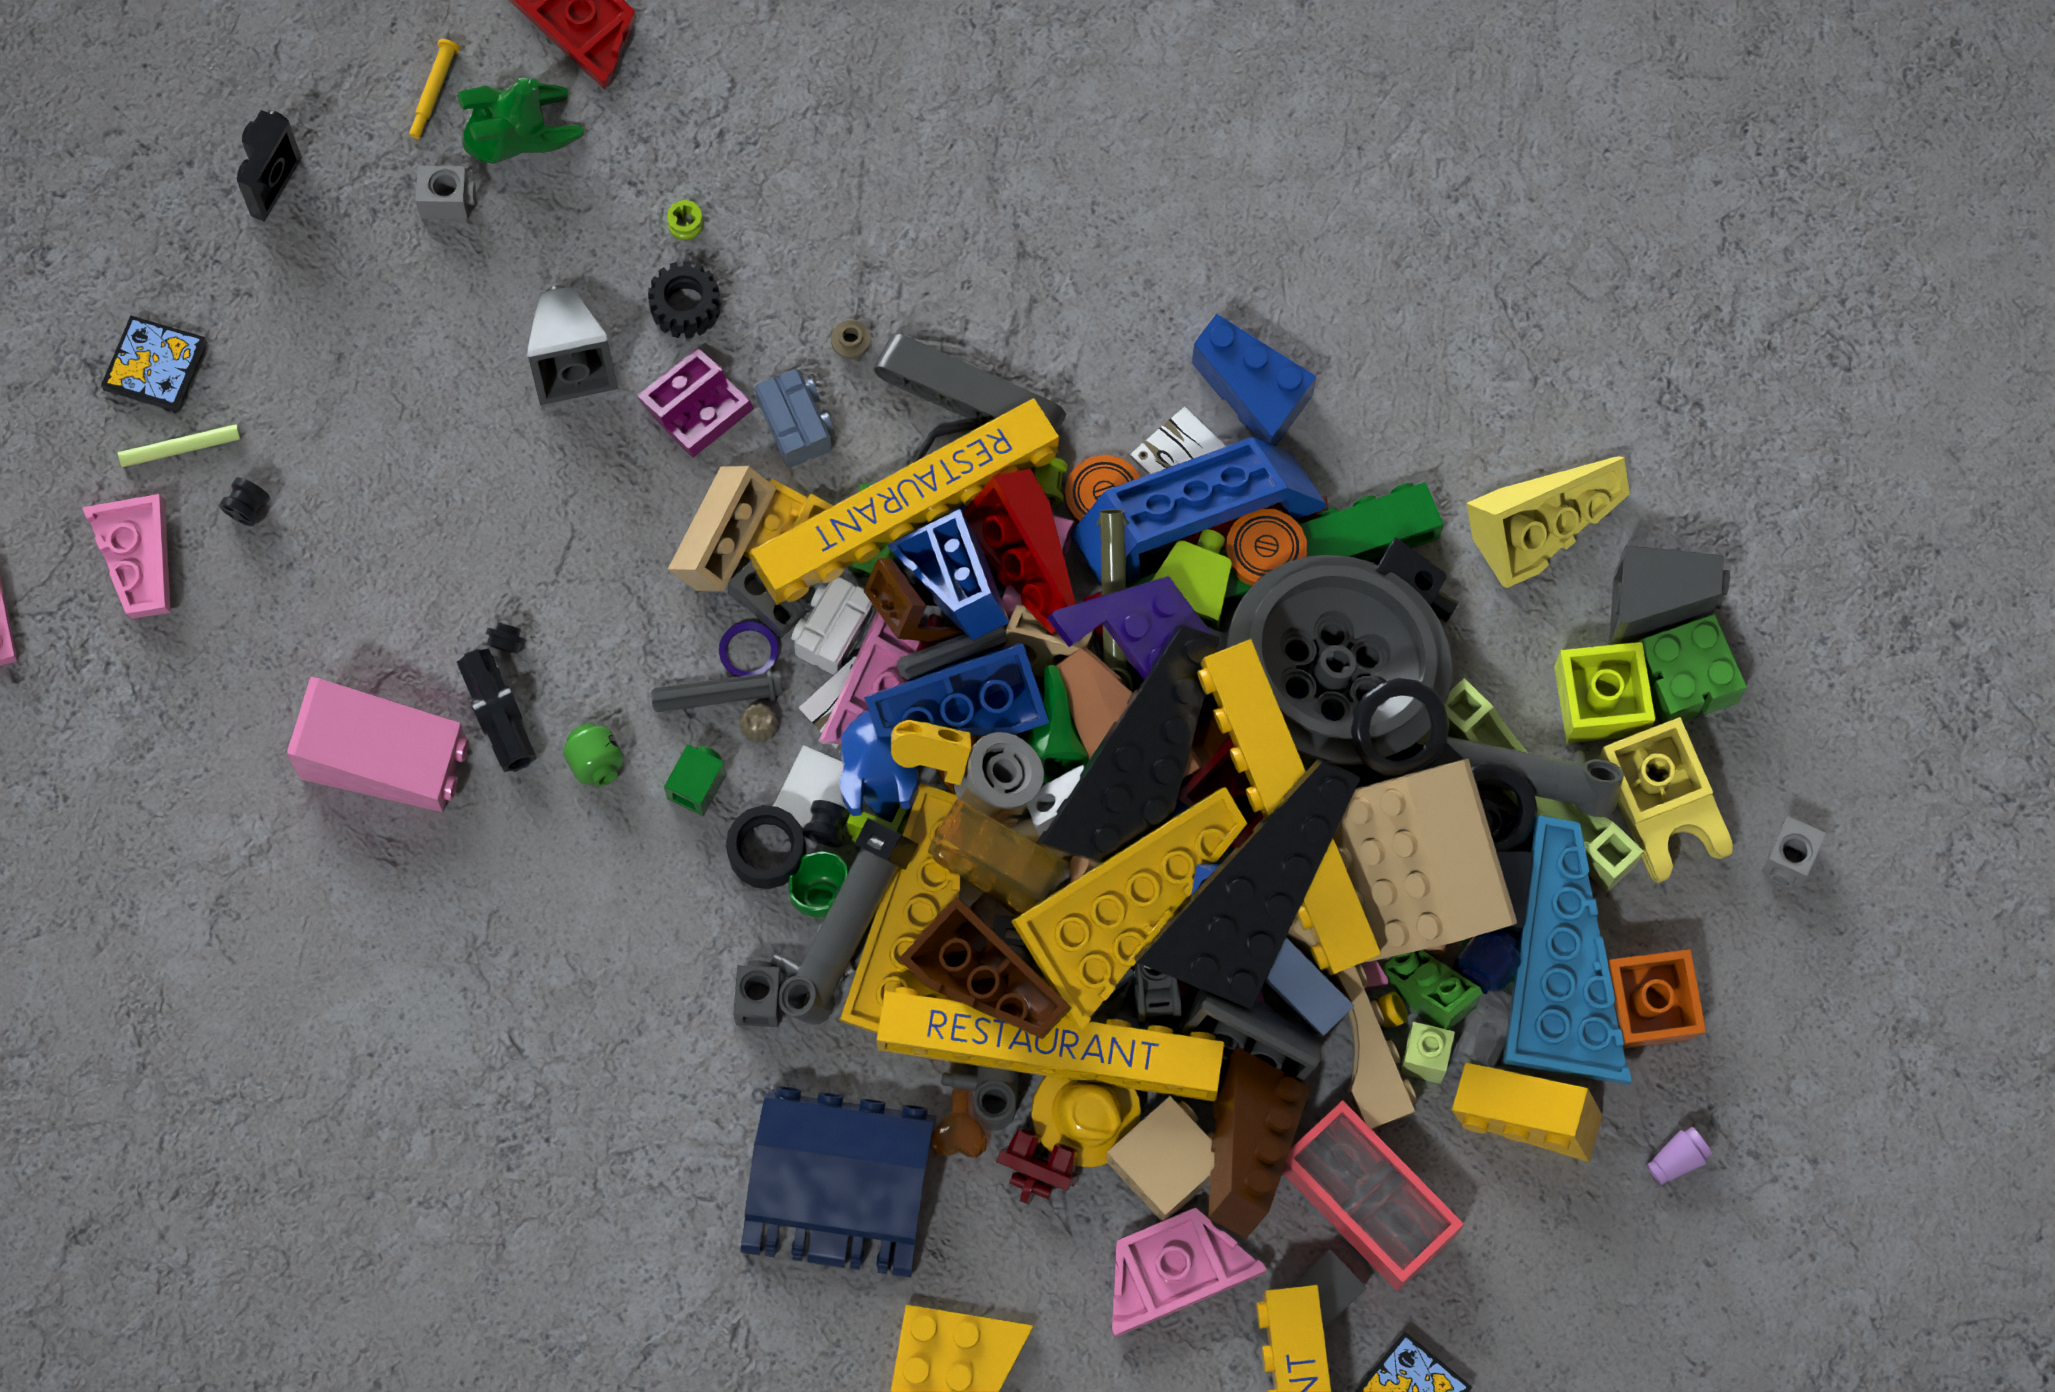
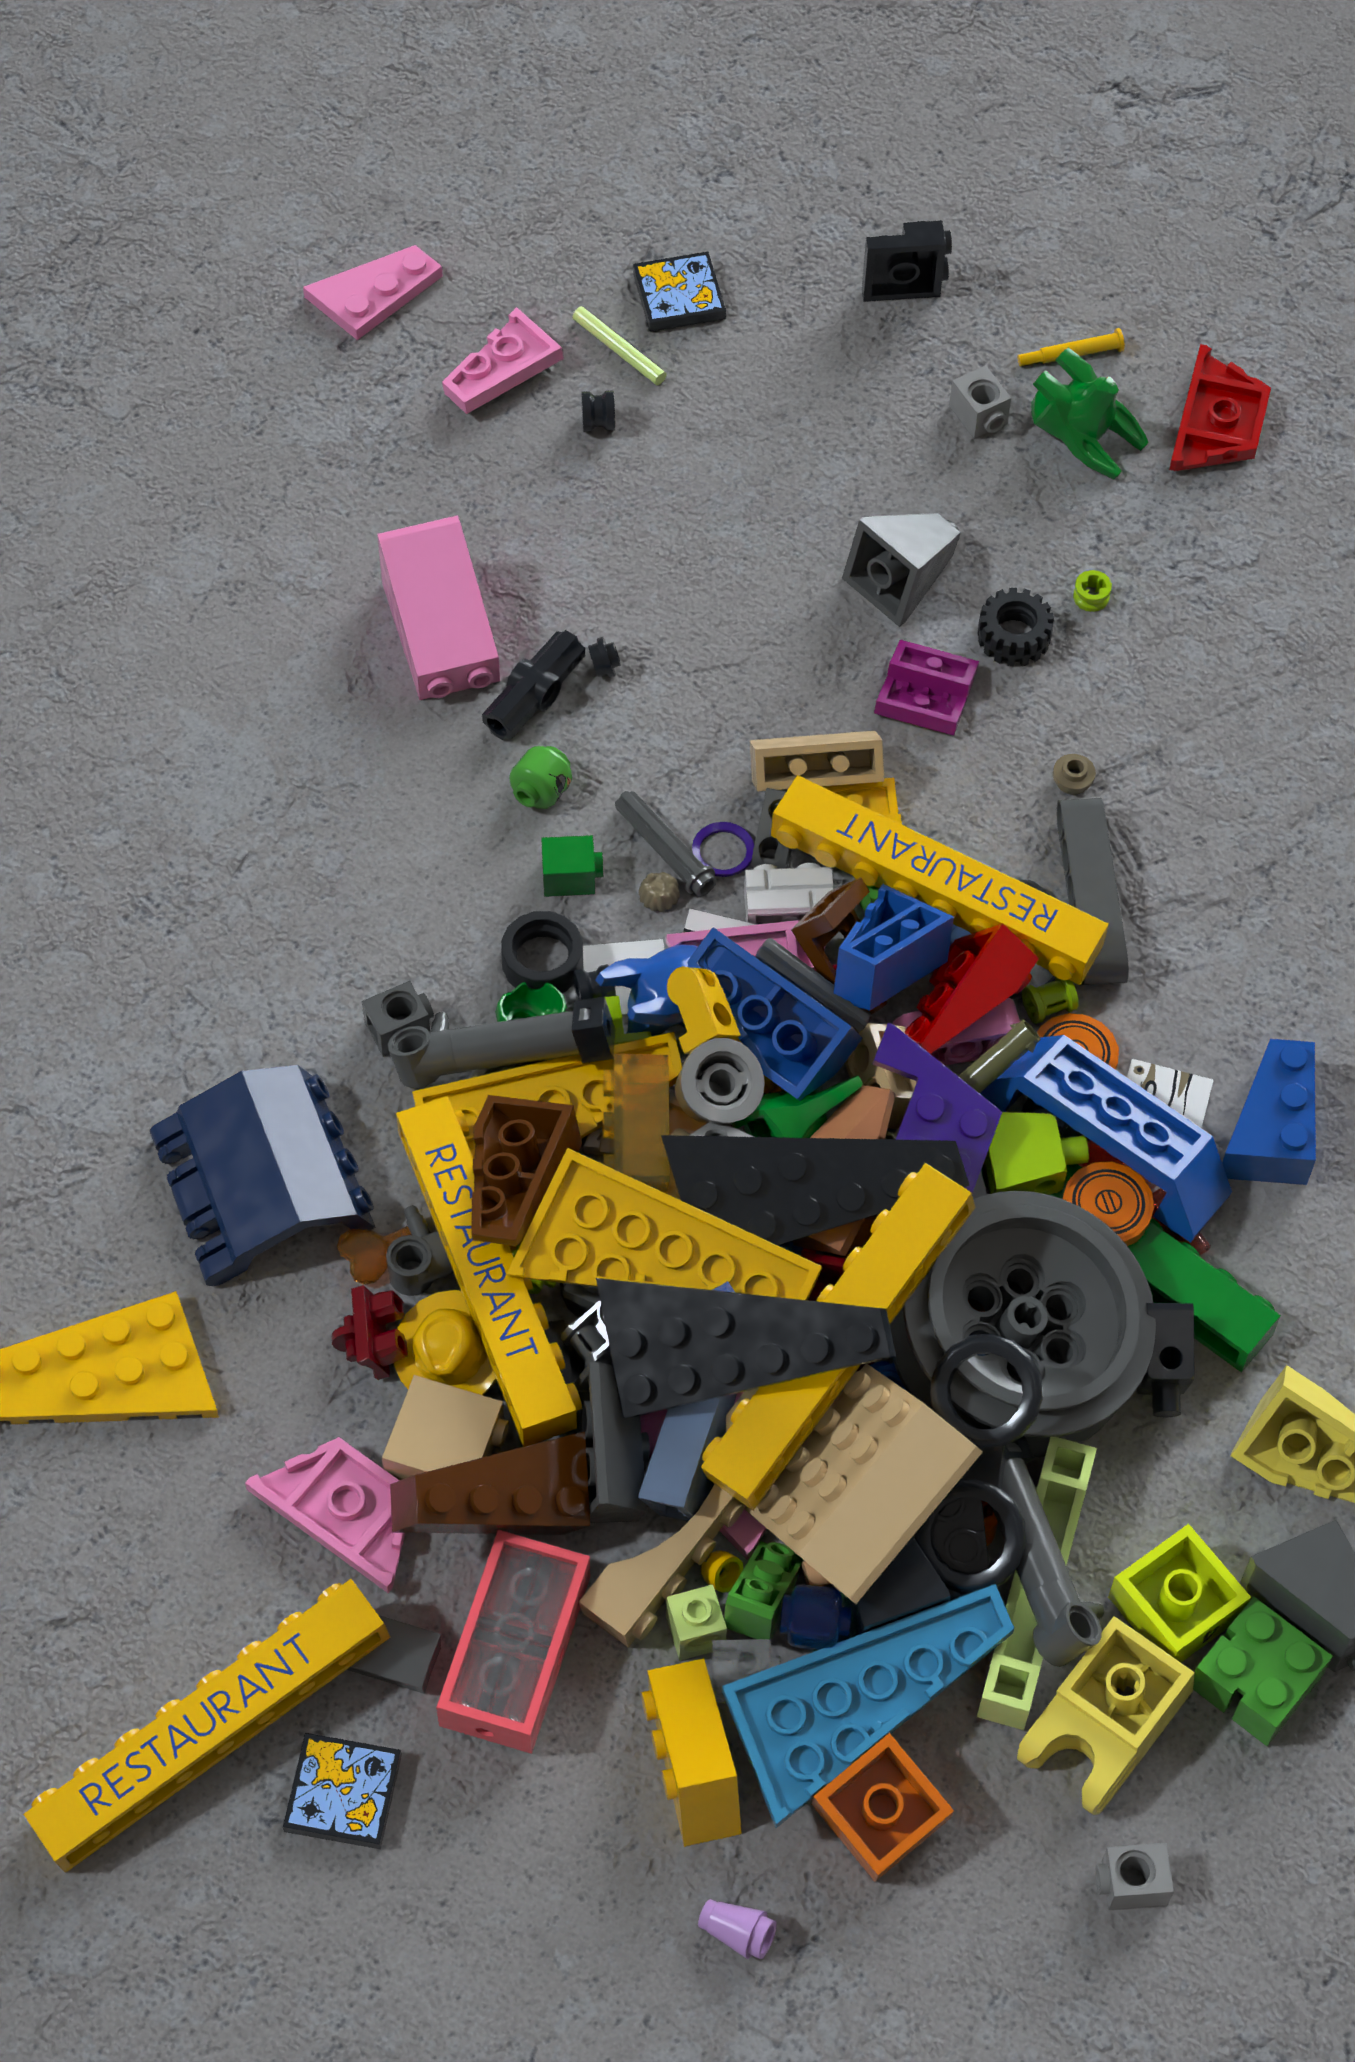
camera: 60 degrees right, 10 degrees down
(794, 418) = (964, 765): sand blue brick -> none

